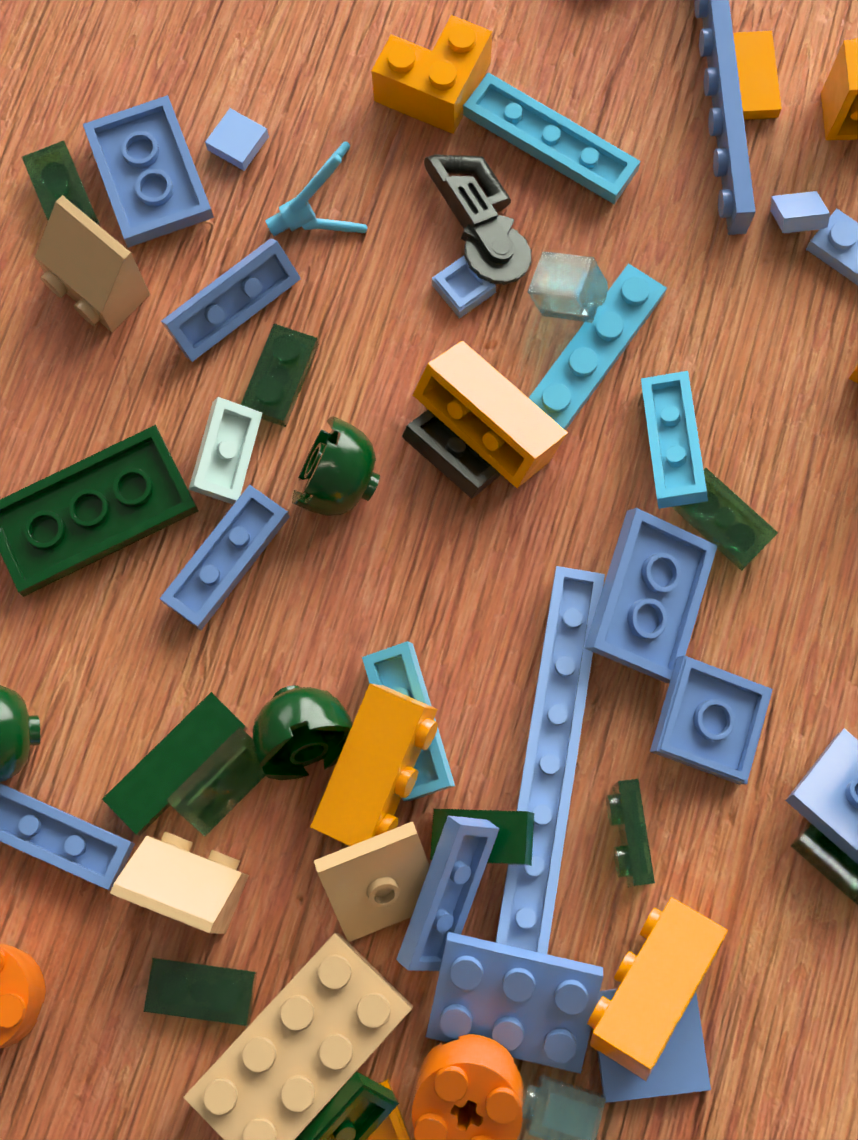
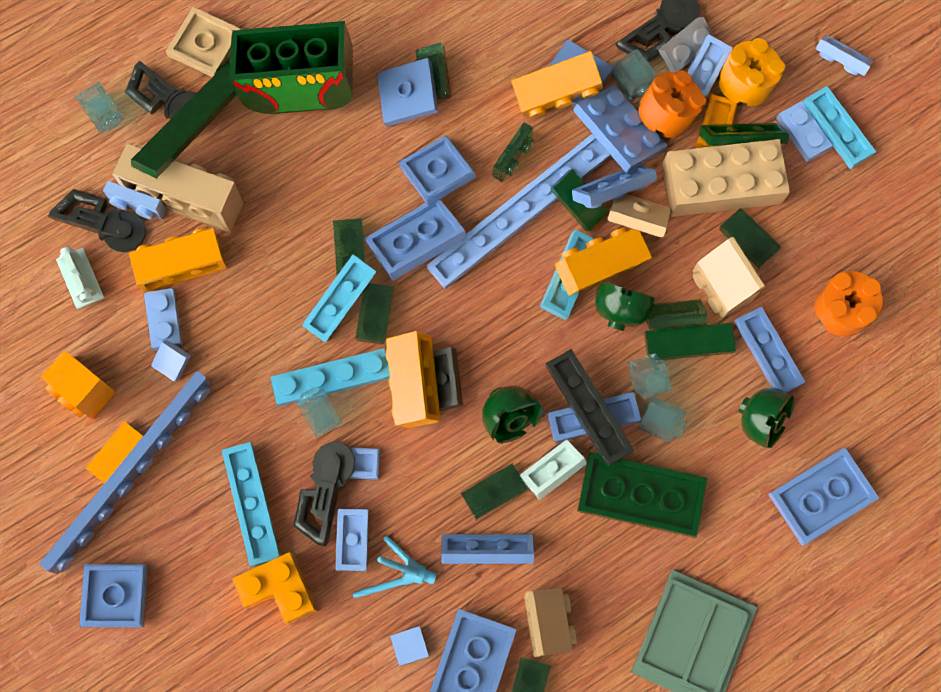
camera: 145 degrees left, 0 degrees up
(131, 622) = (662, 420): none -> clear light blue brick
(190, 660) = (649, 376): none -> clear light blue brick
(236, 550) = (589, 408): none -> pearl dark grey plate
(399, 190) = (352, 540): none -> light blue plate
(613, 462) = (374, 314): none -> clear green plate

